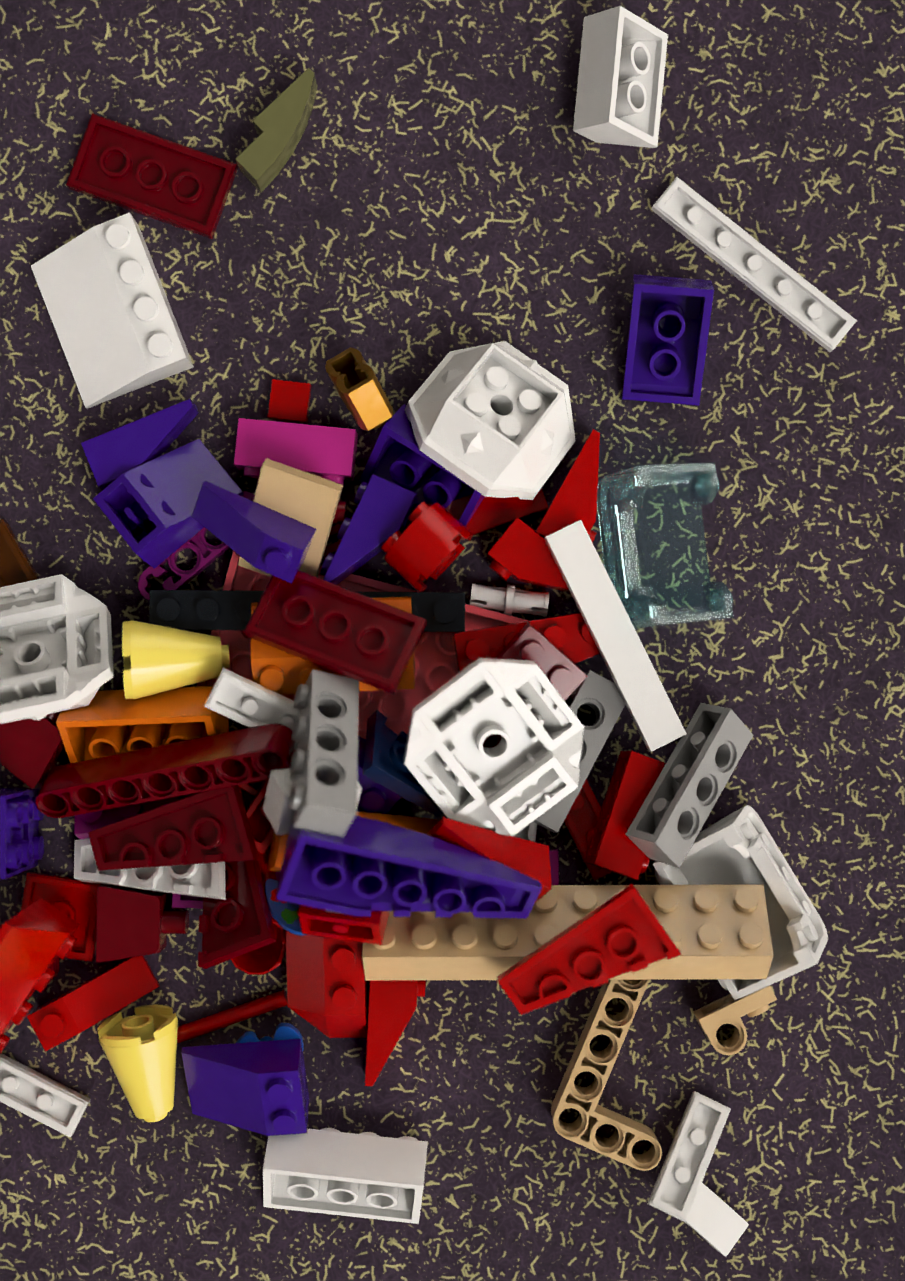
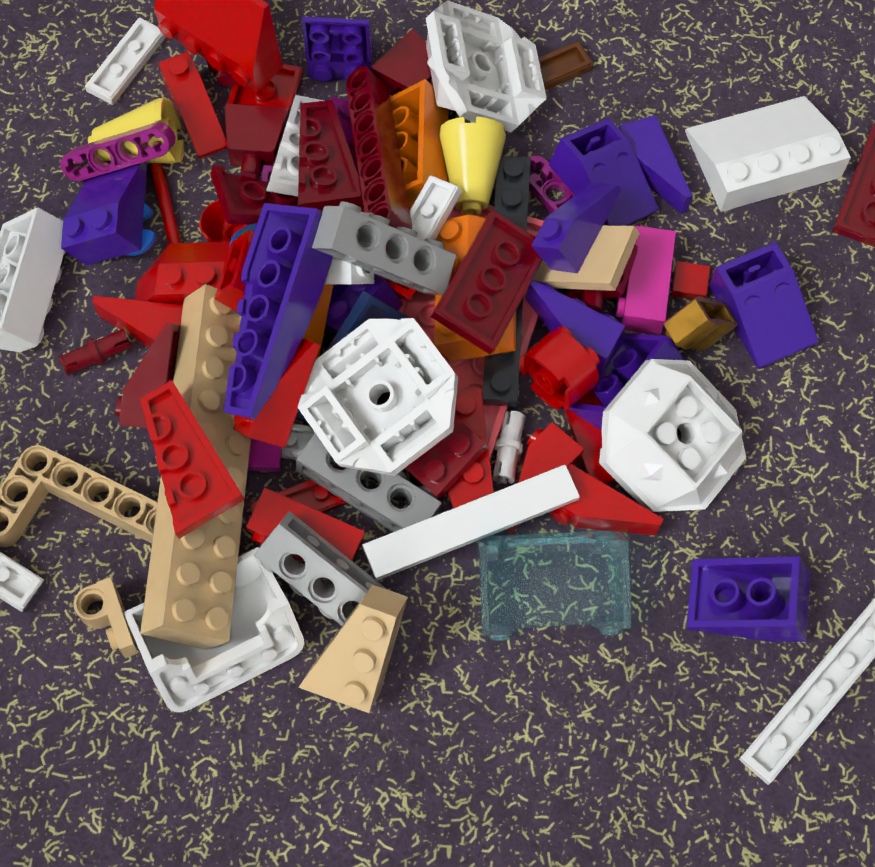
camera: 90 degrees right, 20 degrees down
(167, 1044) = (115, 148): none -> magenta beam
(323, 316) = (766, 304): none -> dark purple slope
(425, 1074) = (95, 352): none -> dark red pin
(472, 1002) = (152, 372): none -> dark red slope
(767, 748) = (360, 652): none -> tan wedge

